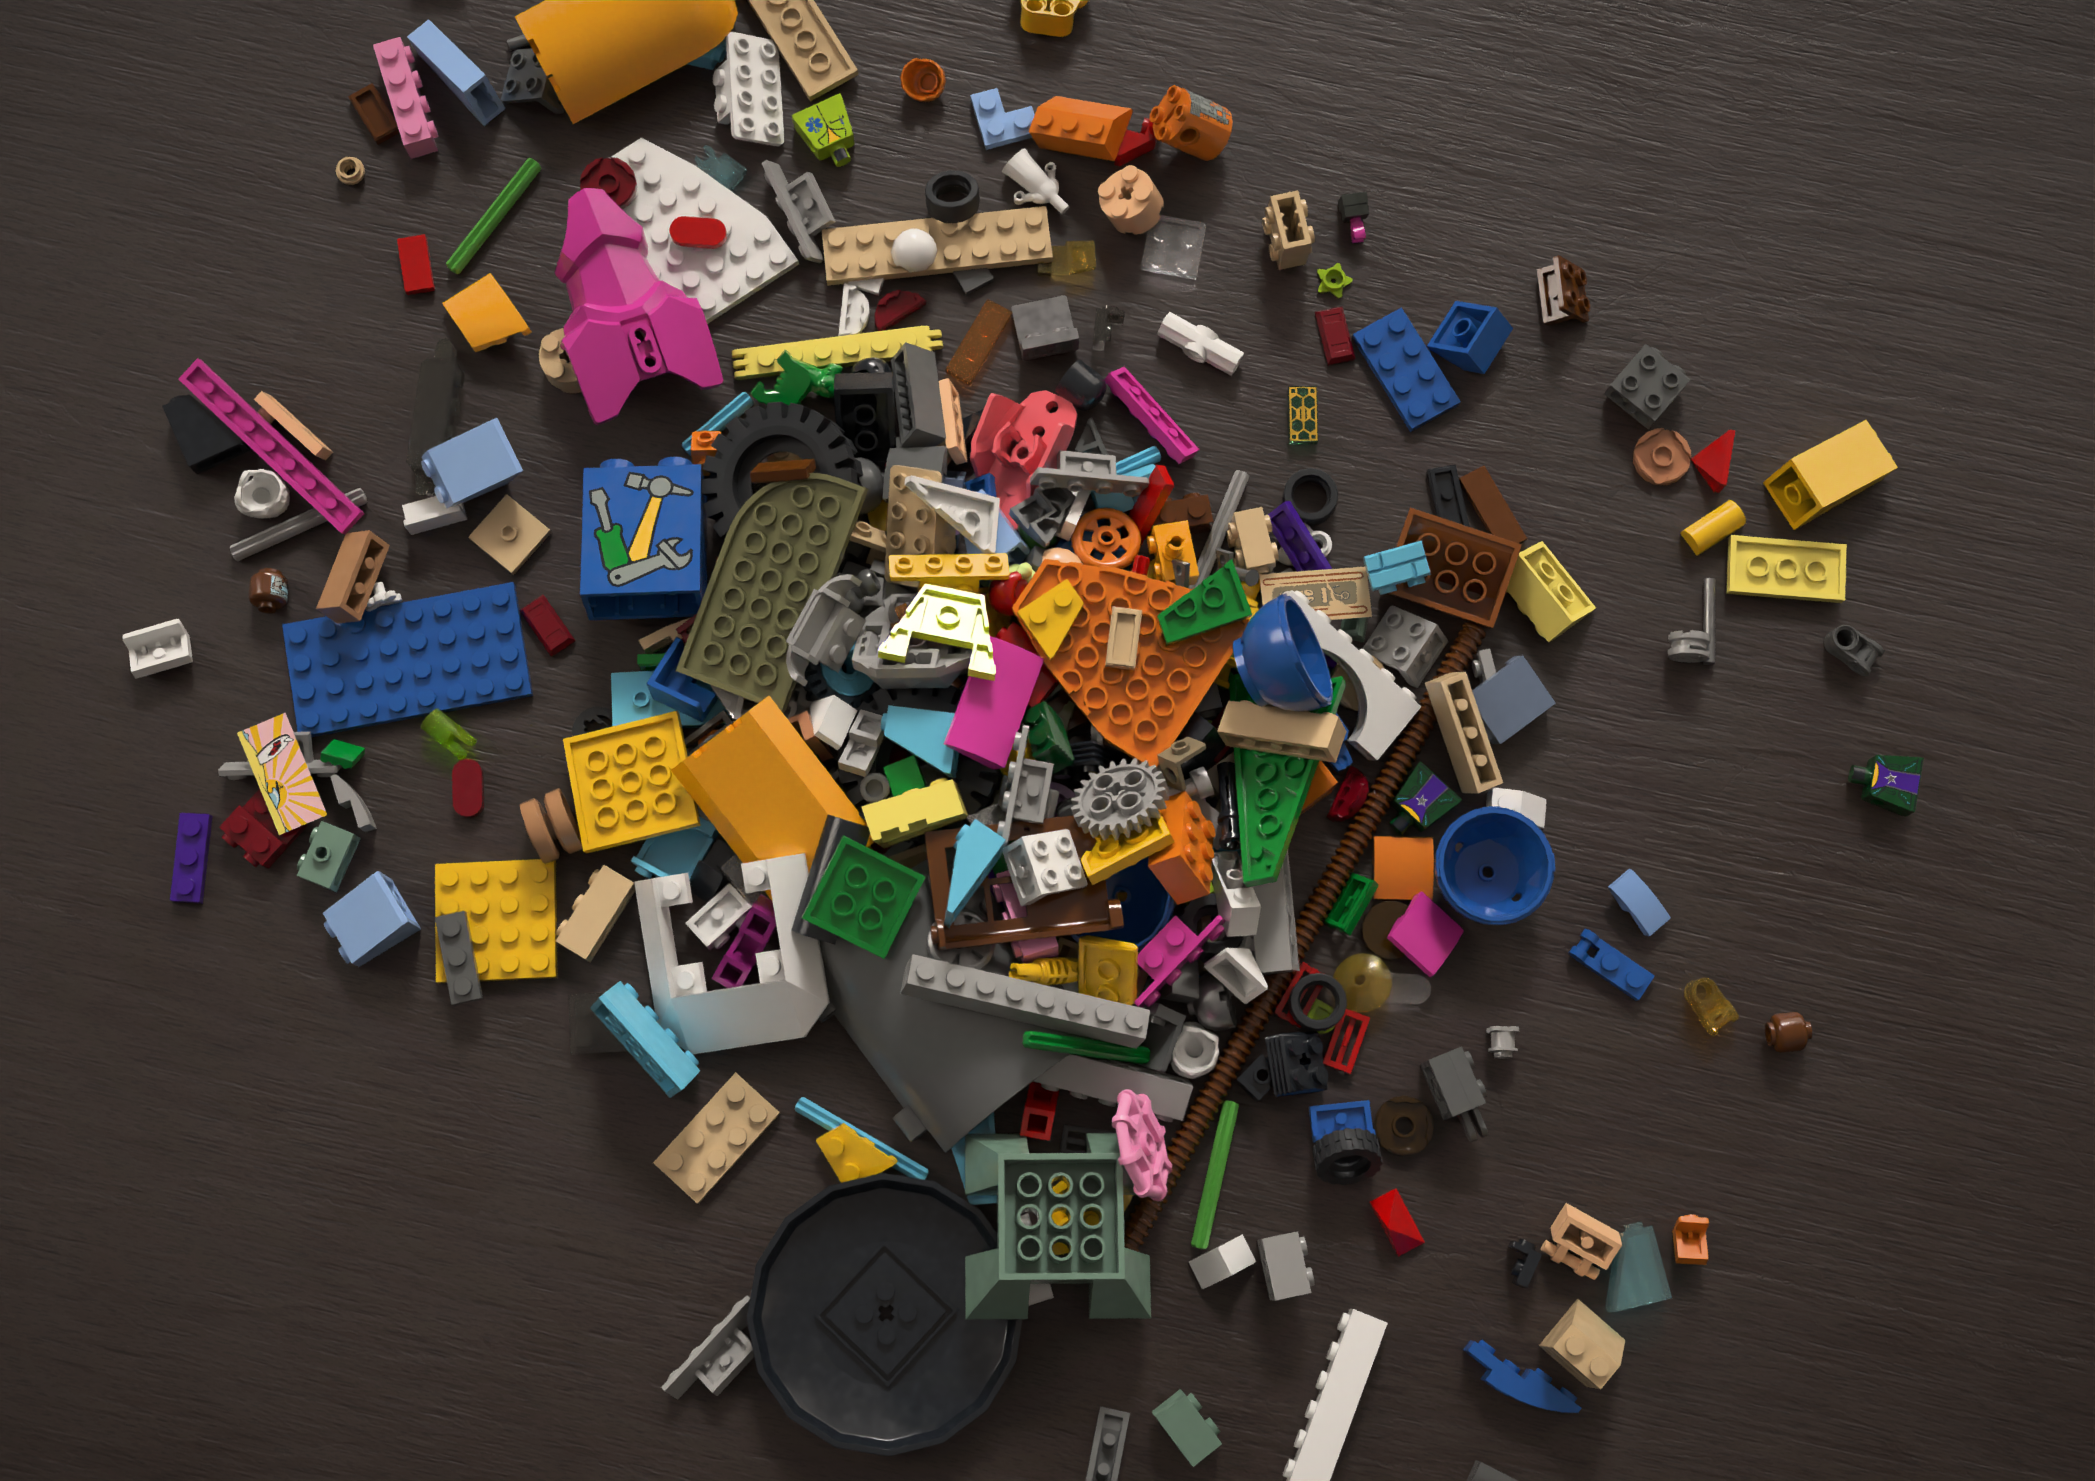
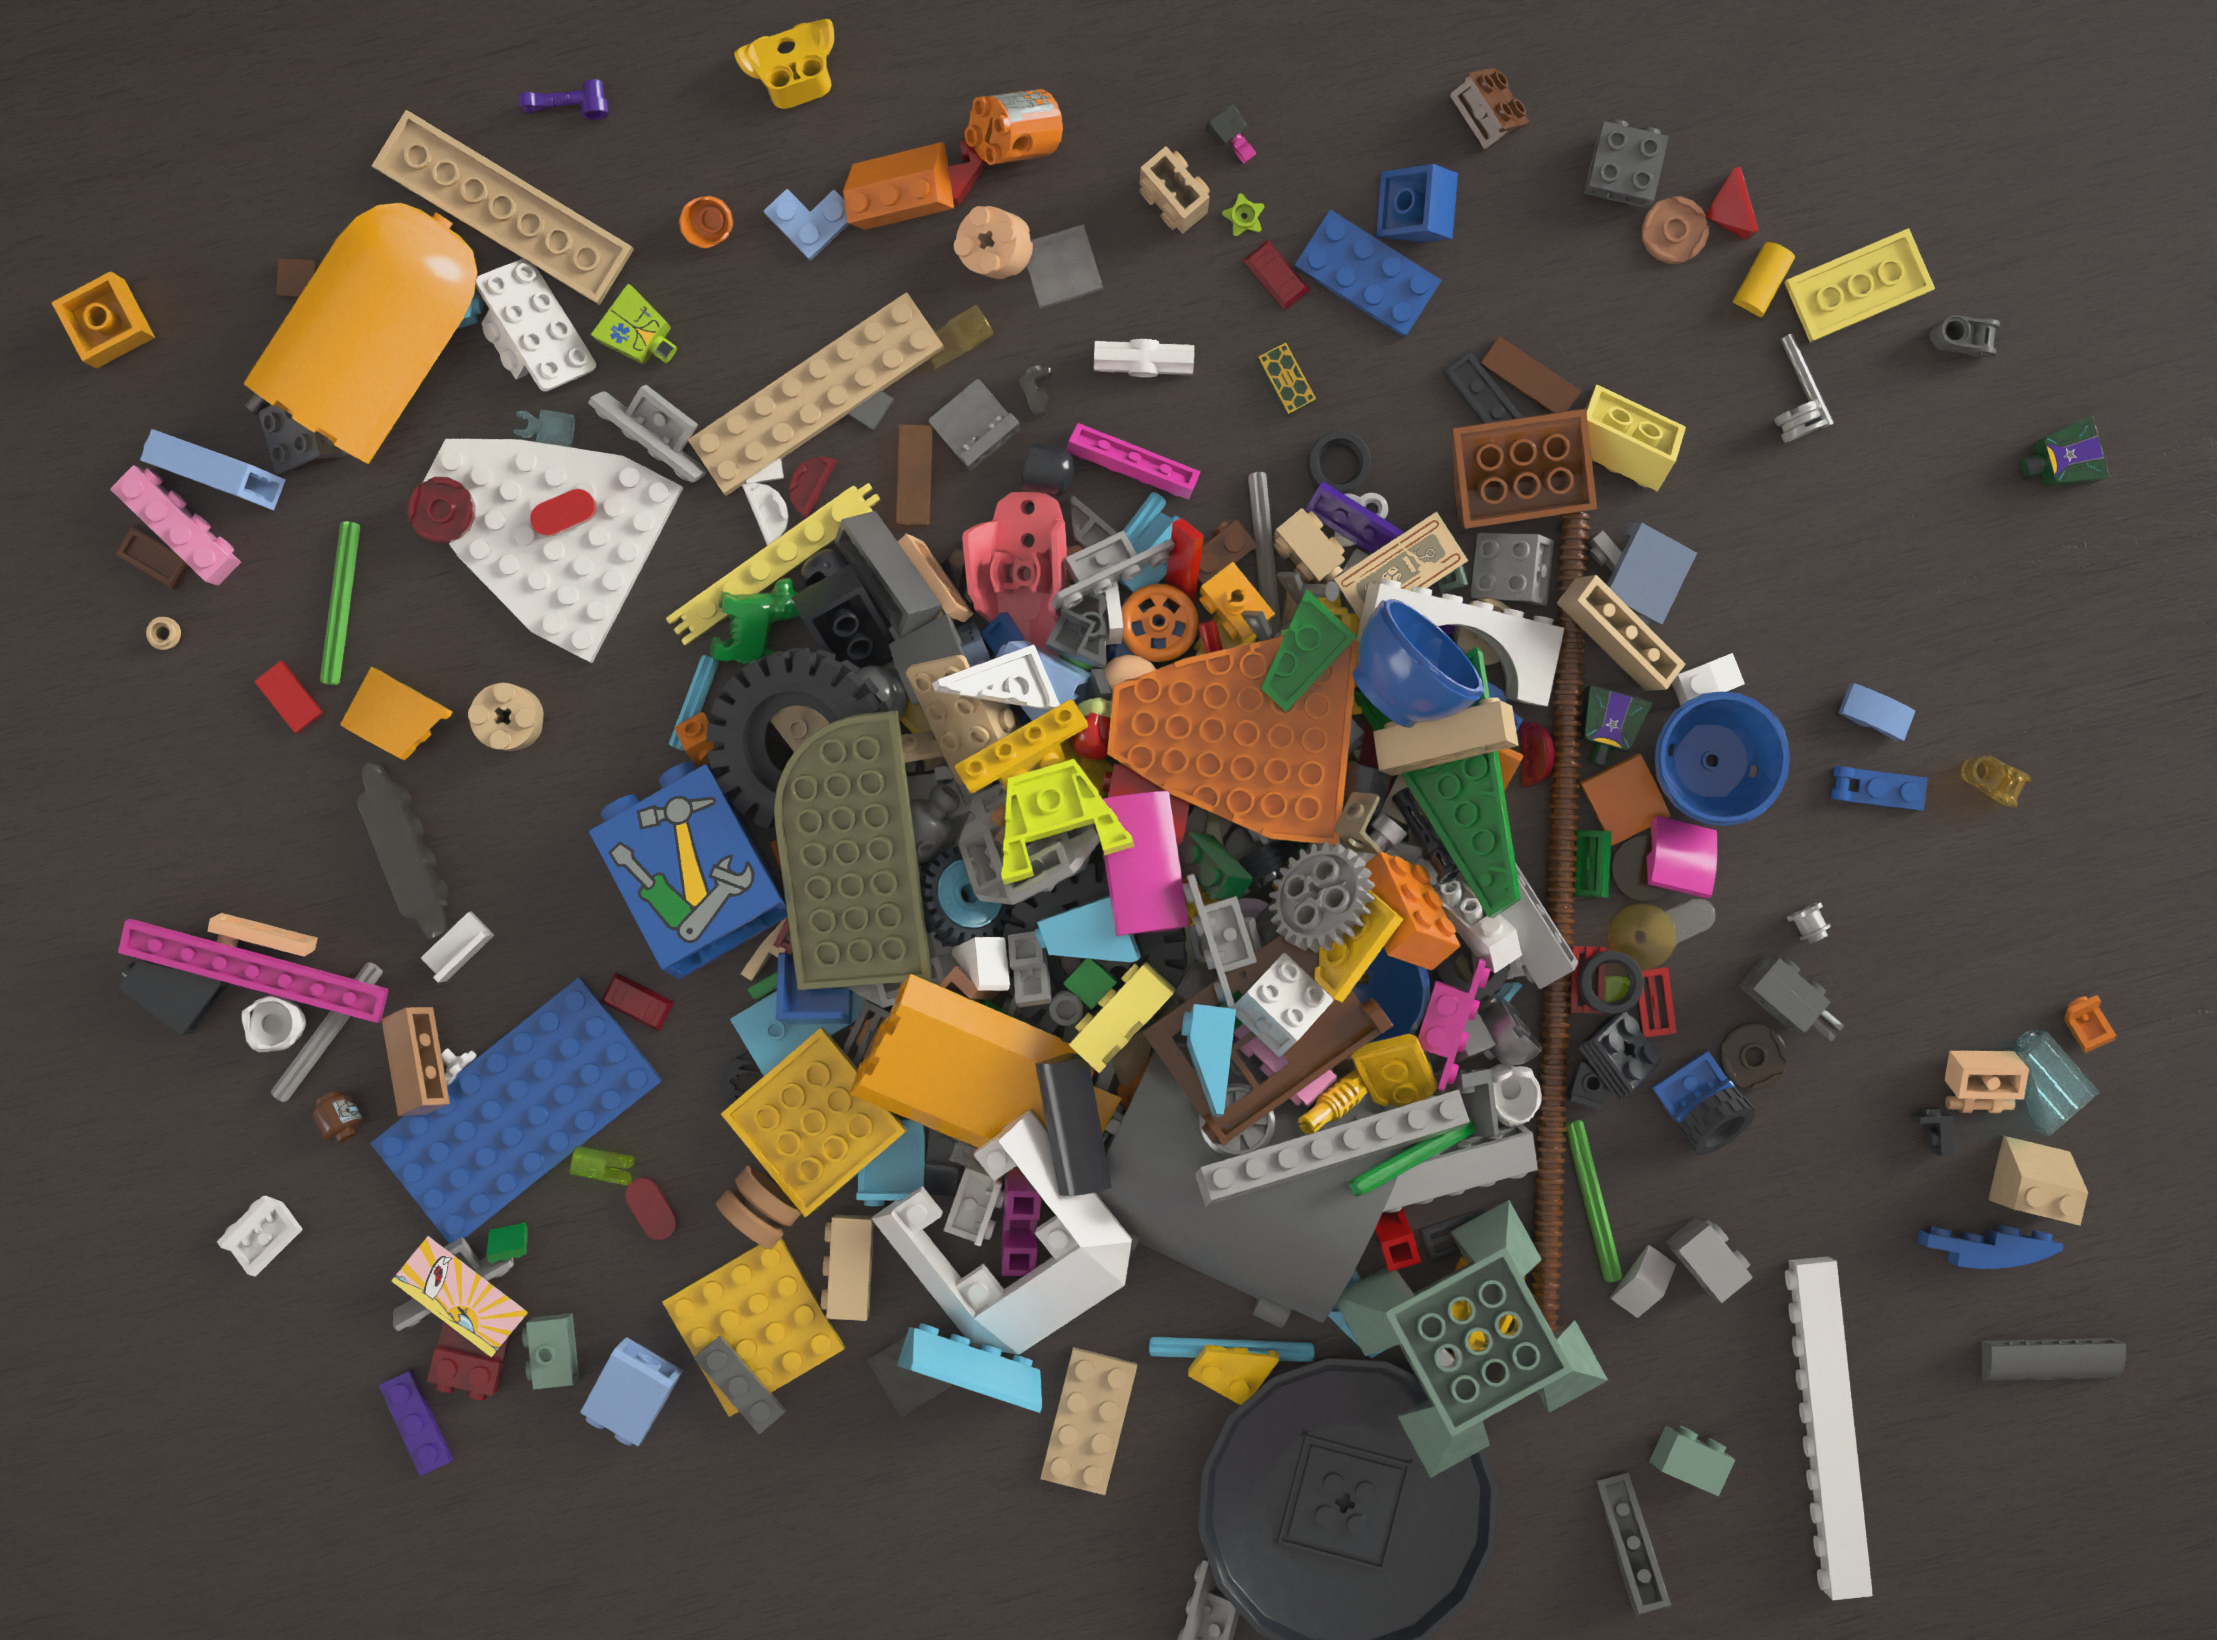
camera: 25 degrees left, 10 degrees up
(347, 798) = (536, 1279): light grey slope -> none
(471, 464) = (469, 884): light blue slope -> none
(510, 534) = (547, 929): tan plate -> none
(613, 298) = (525, 632): dark pink piece -> none
(782, 471) = (798, 734): reddish brown tile -> none
(824, 629) = (930, 878): light grey plate -> none
(863, 897) = (1117, 1129): green plate -> none
(914, 250) = (797, 415): white hair -> none
(952, 211) = (798, 315): black tyre -> none
(1040, 184) = (876, 269): white piece -> none
(1052, 616) = (1154, 743): yellow wing -> none
(1123, 638) = (1237, 727): tan tile -> none
(1142, 1145) = (1516, 1223): bright pink plate -> none
(1238, 973) = (1522, 1000): white slope -> none
(1396, 1222) = (1792, 1153): red slope -> none
(1397, 566) = (1471, 500): medium azure brick -> none
(1788, 1032) = (2086, 767): reddish brown head -> none
(1829, 474) = (1858, 161): yellow slope -> none

